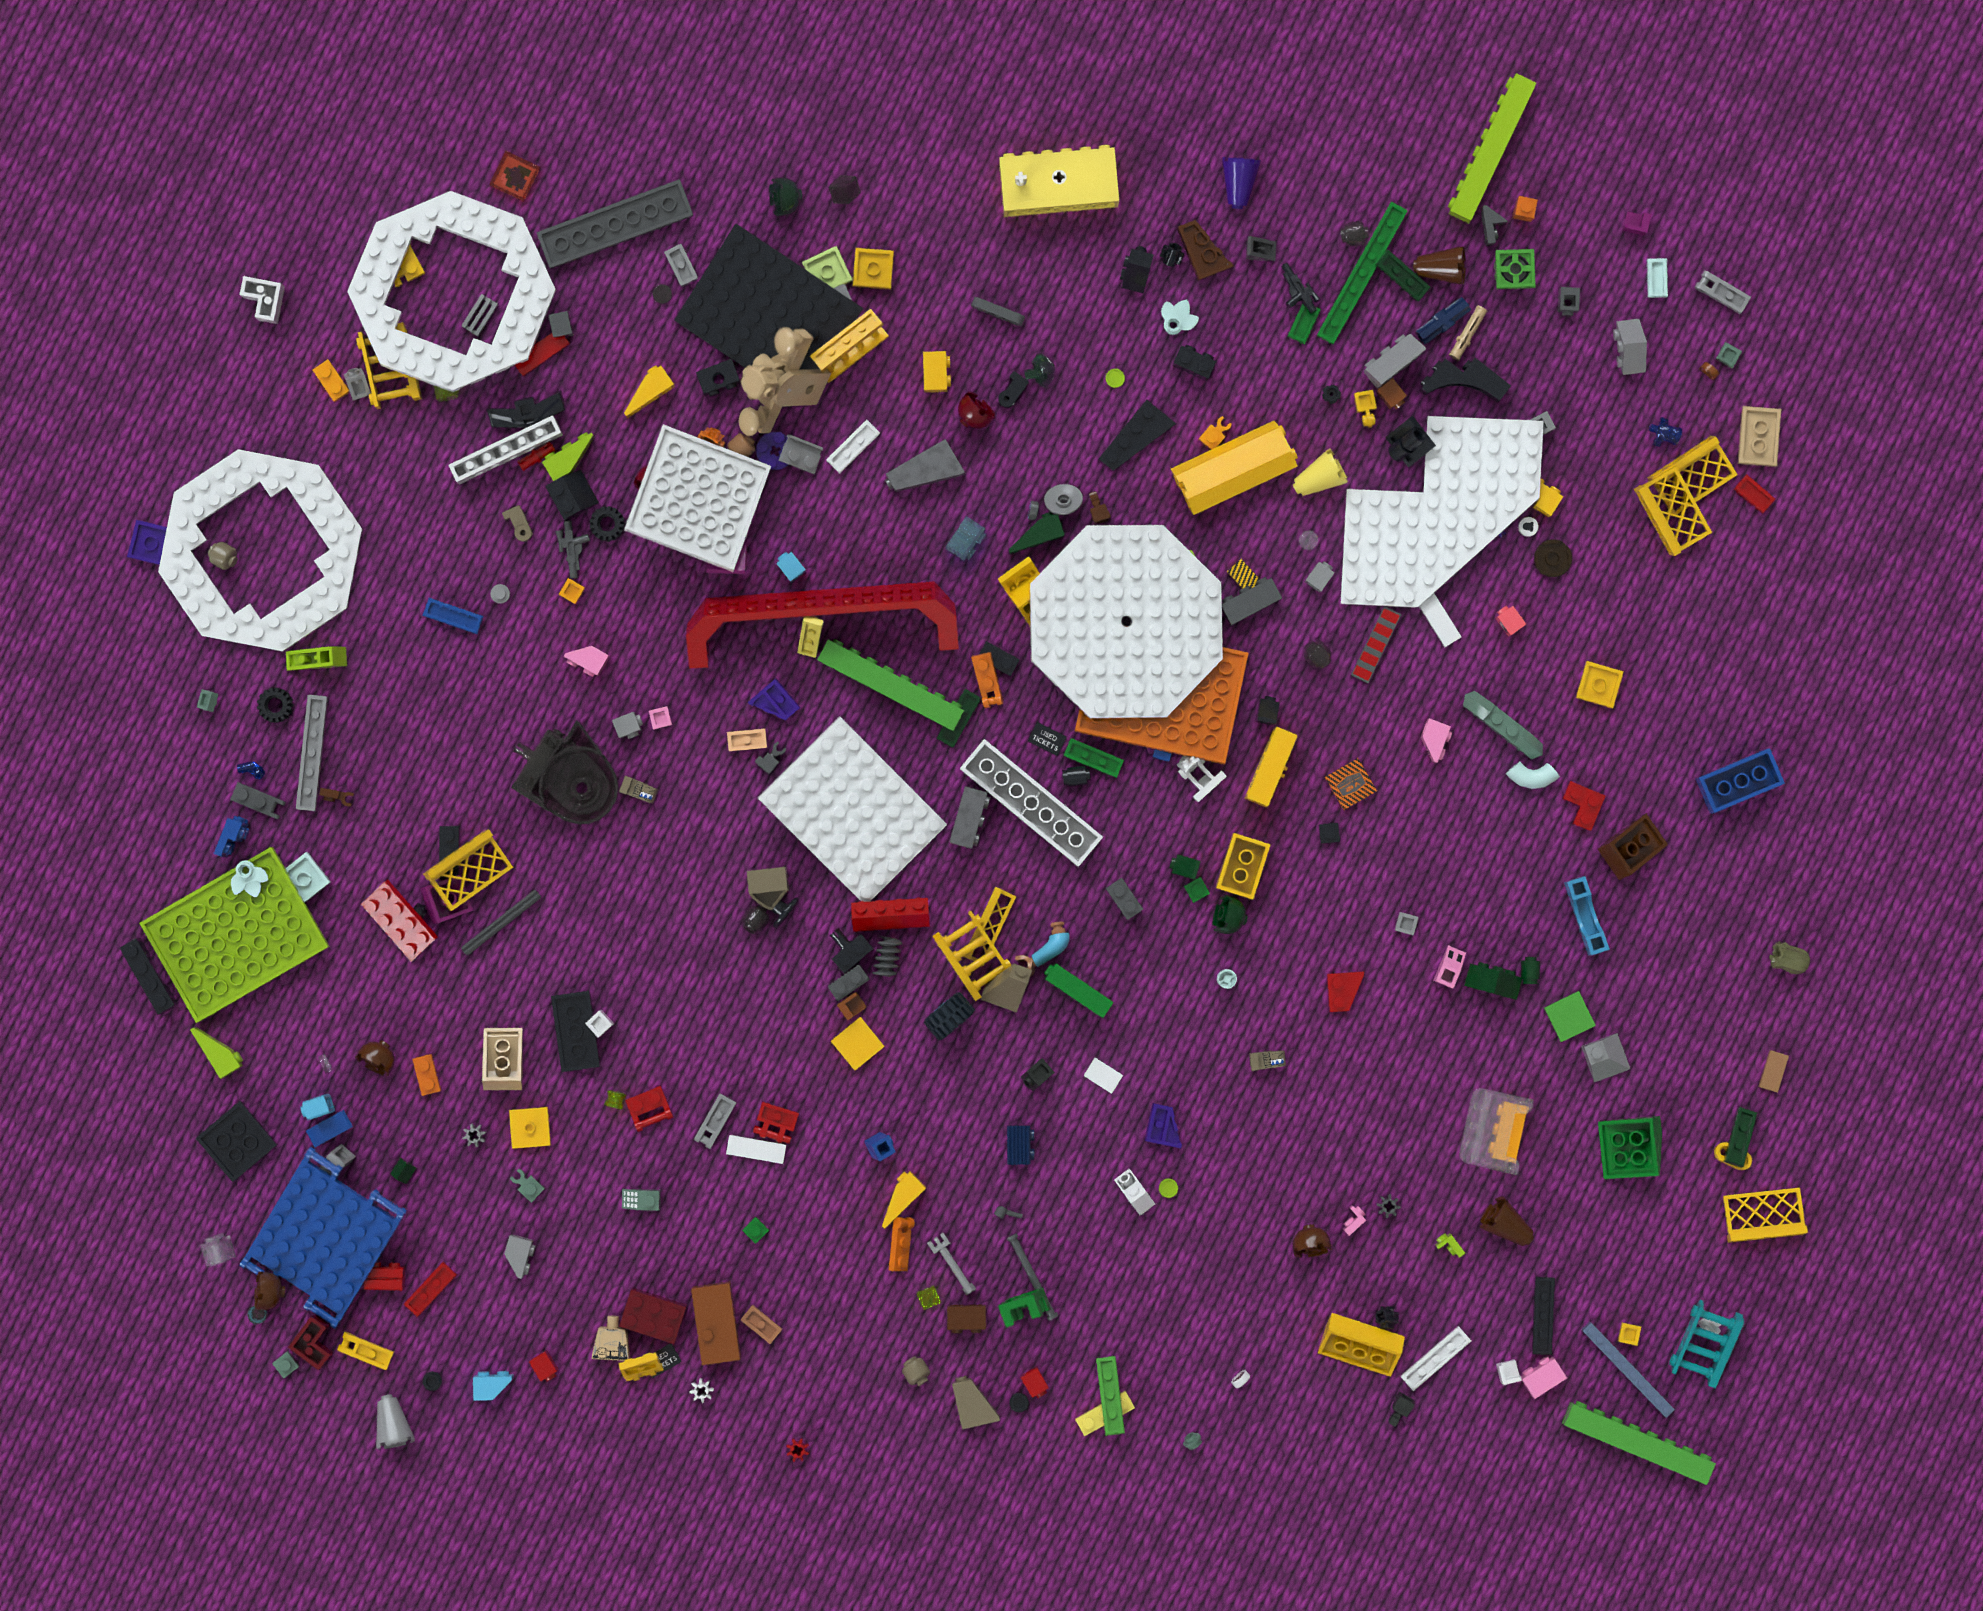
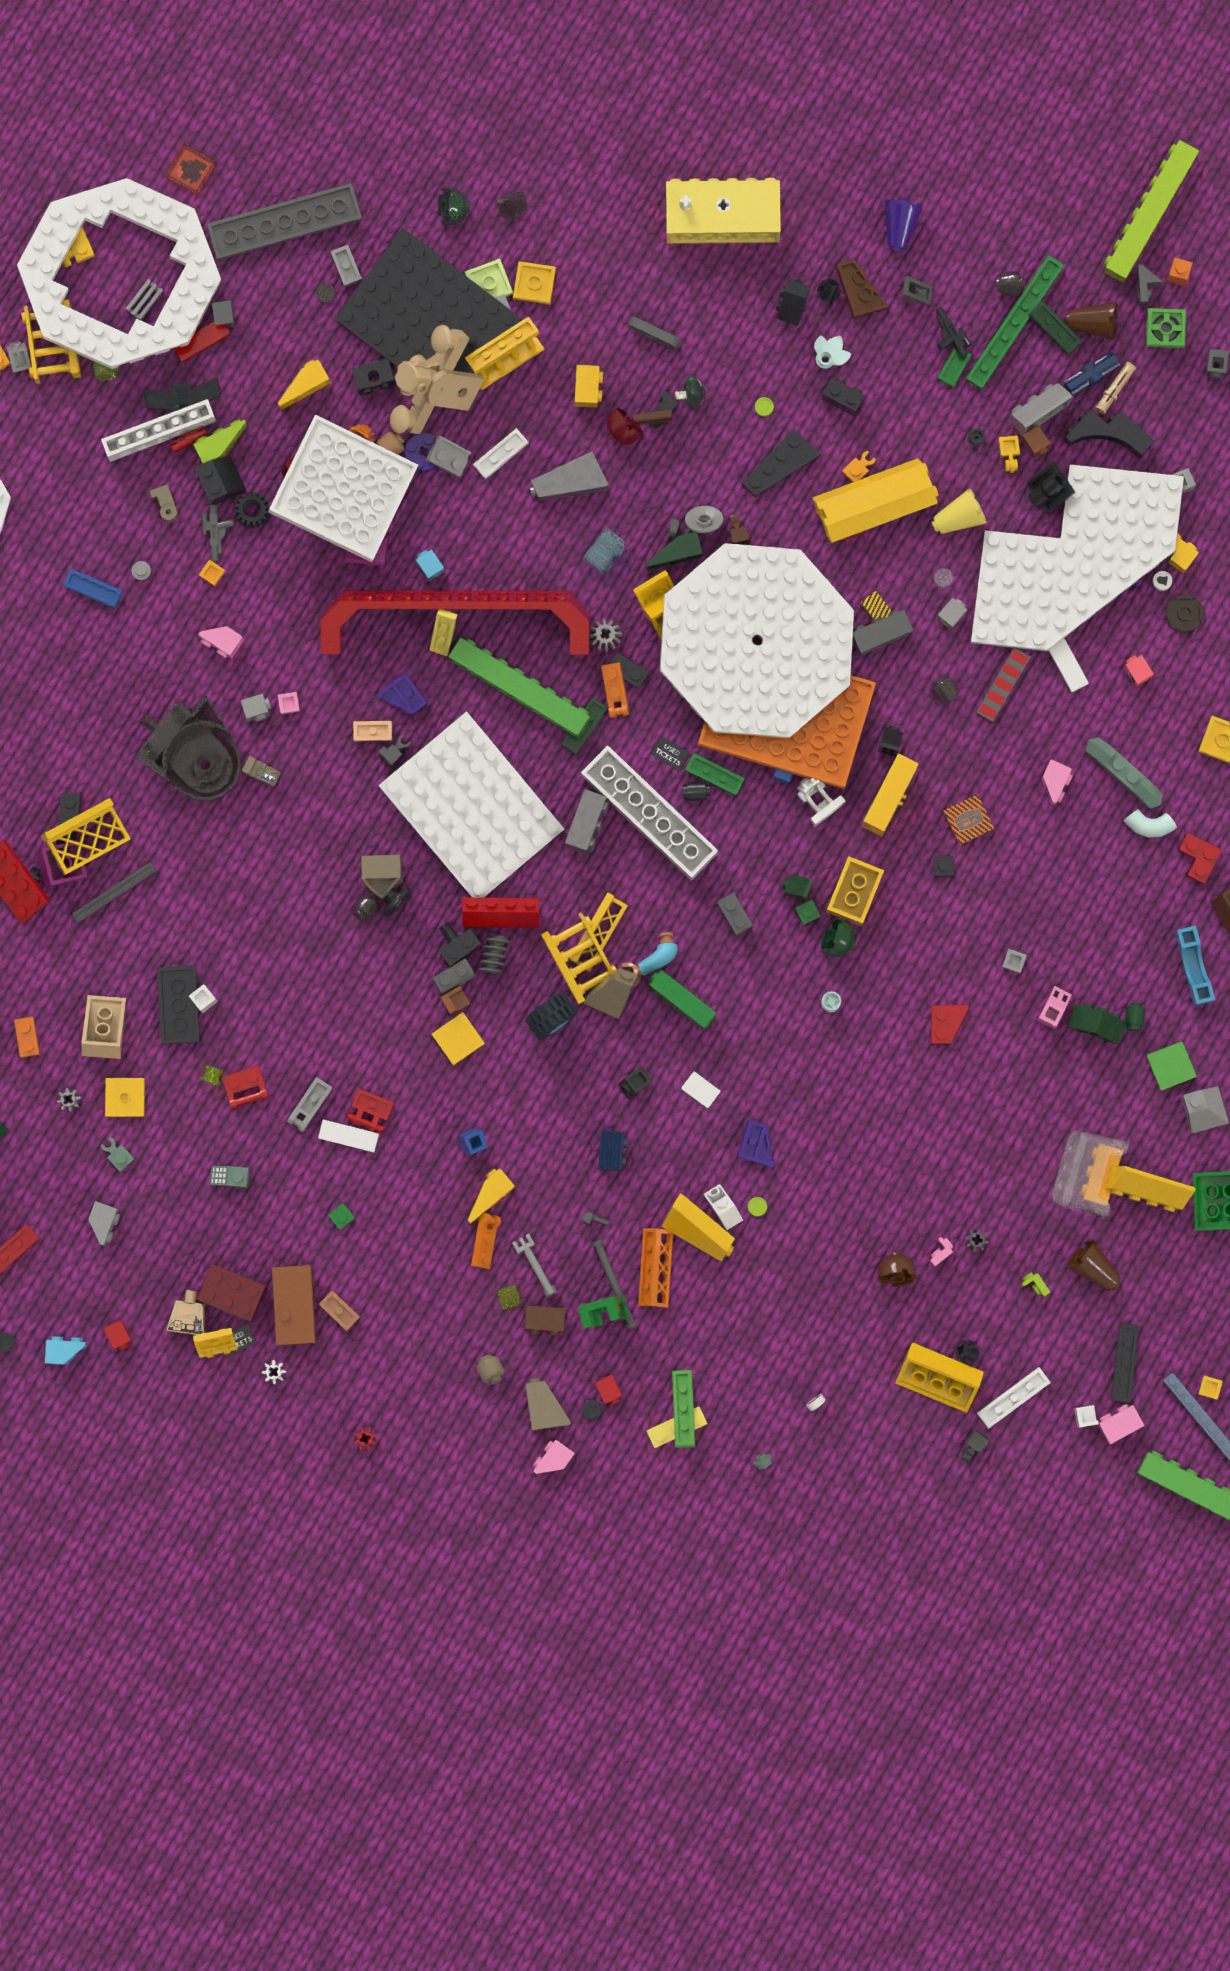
camera: 15 degrees right, 5 degrees down
(979, 625) = (597, 635): none -> light grey gear
(987, 1454) = (555, 1458): none -> bright pink slope
(1004, 400) = (653, 417): none -> reddish brown tile
(1068, 1257) = (652, 1267): none -> orange fence
(1111, 1217) = (698, 1229): none -> yellow slope
(1267, 1059) = (865, 1085): dark tan leg -> none
(1555, 1142) = (1149, 1188): none -> yellow slope

